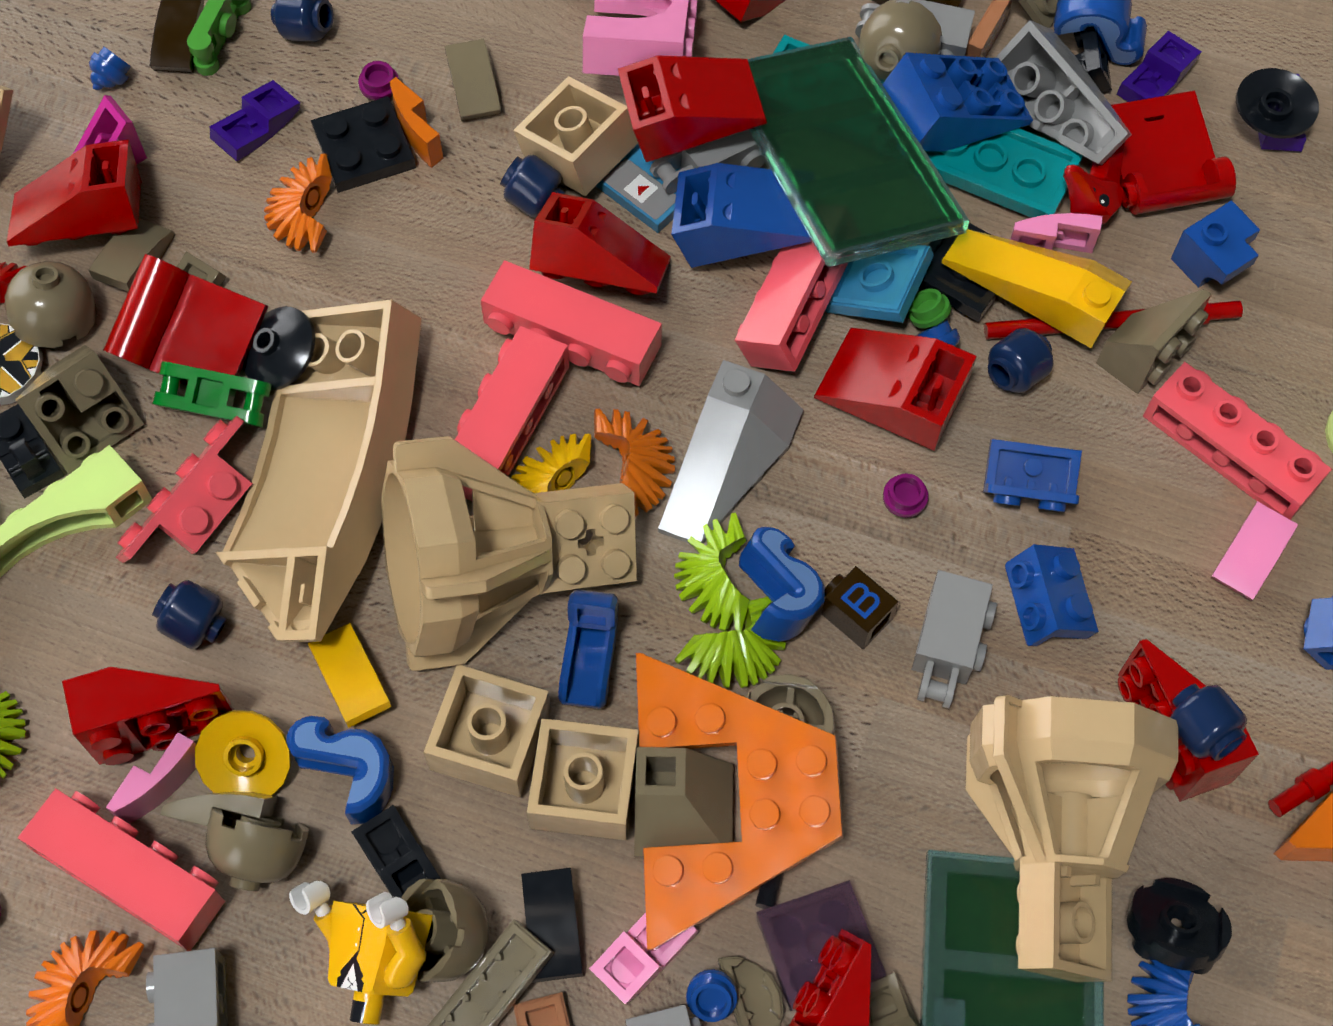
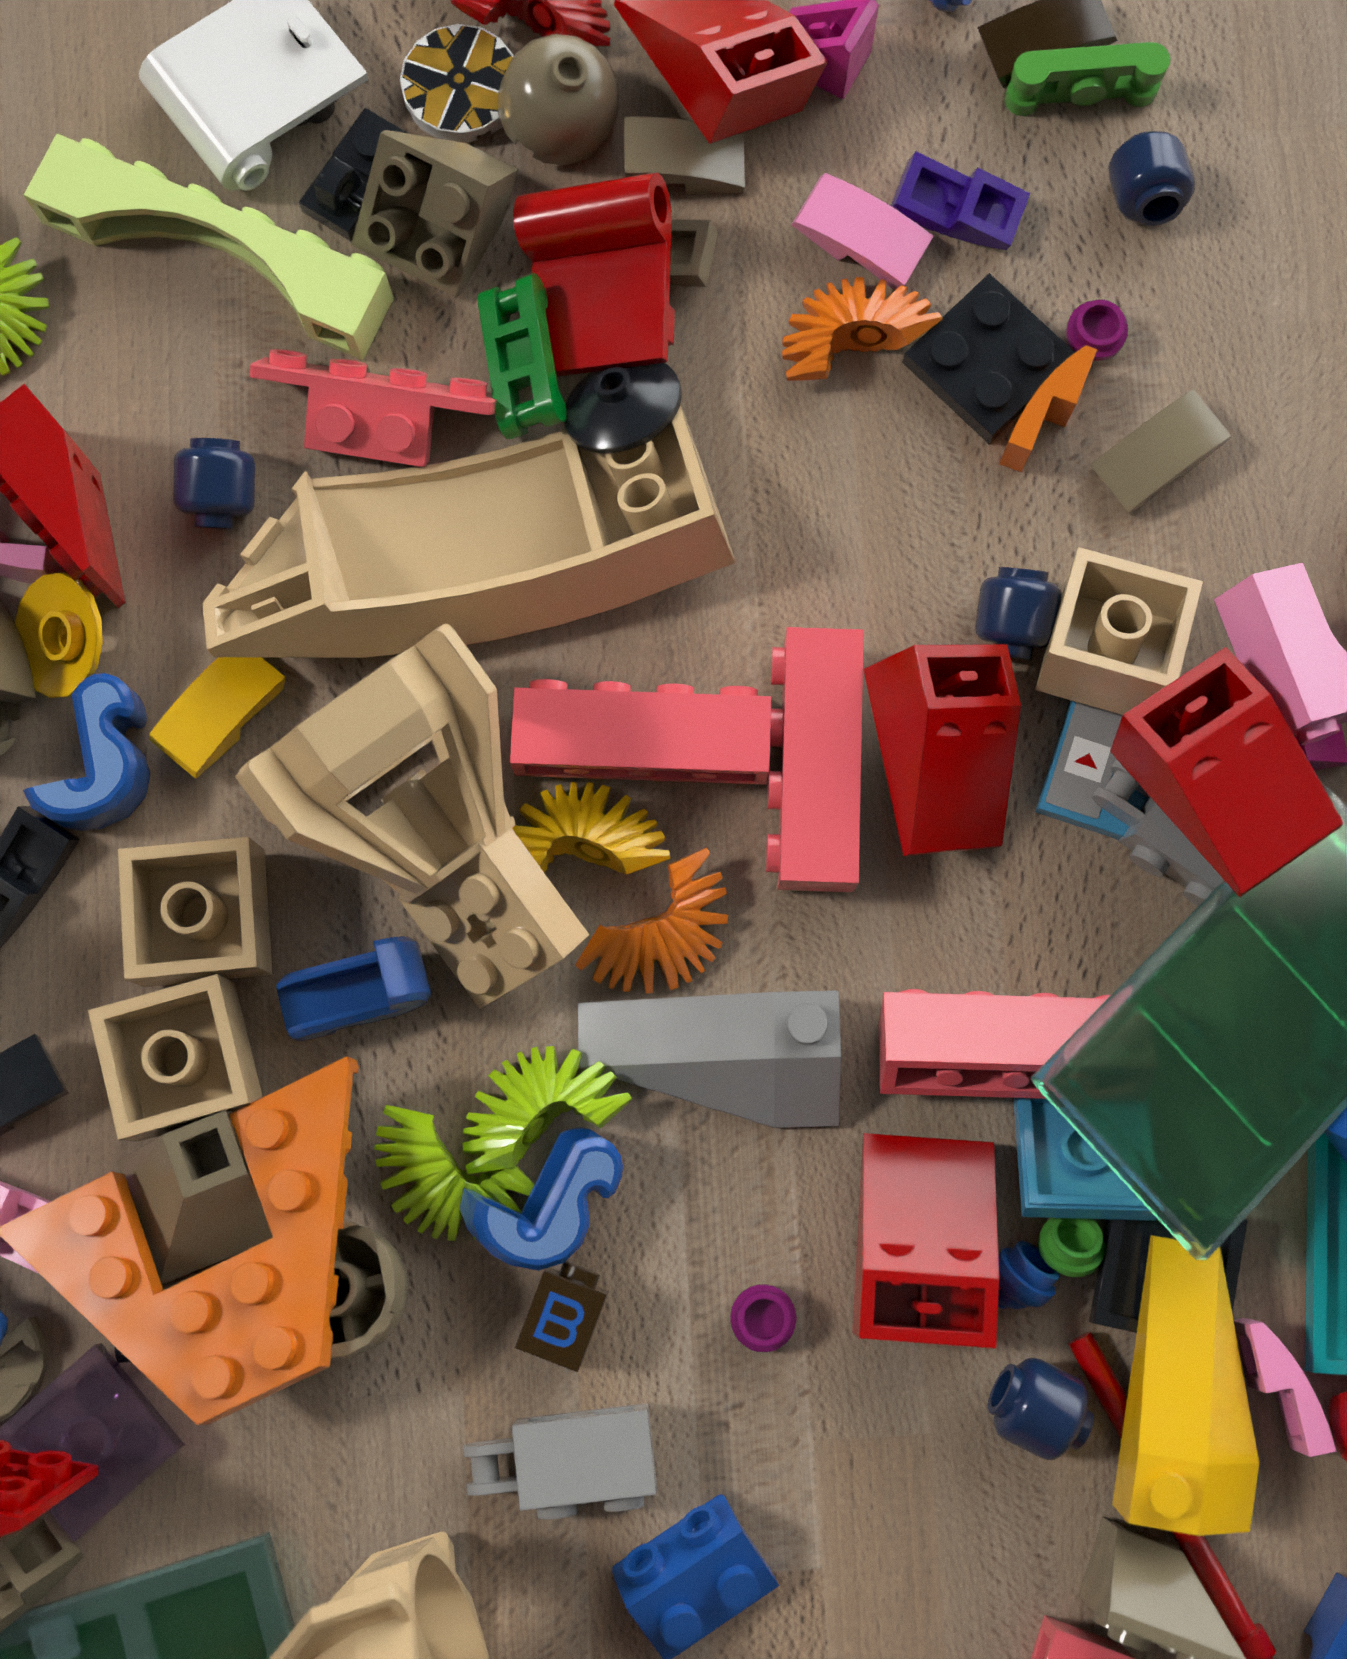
camera: 70 degrees right, 15 degrees up
(236, 176) = (859, 225): none -> bright pink slope
(732, 214) = (1083, 904): blue slope -> none
(1032, 472) = (862, 1489): blue bracket -> none

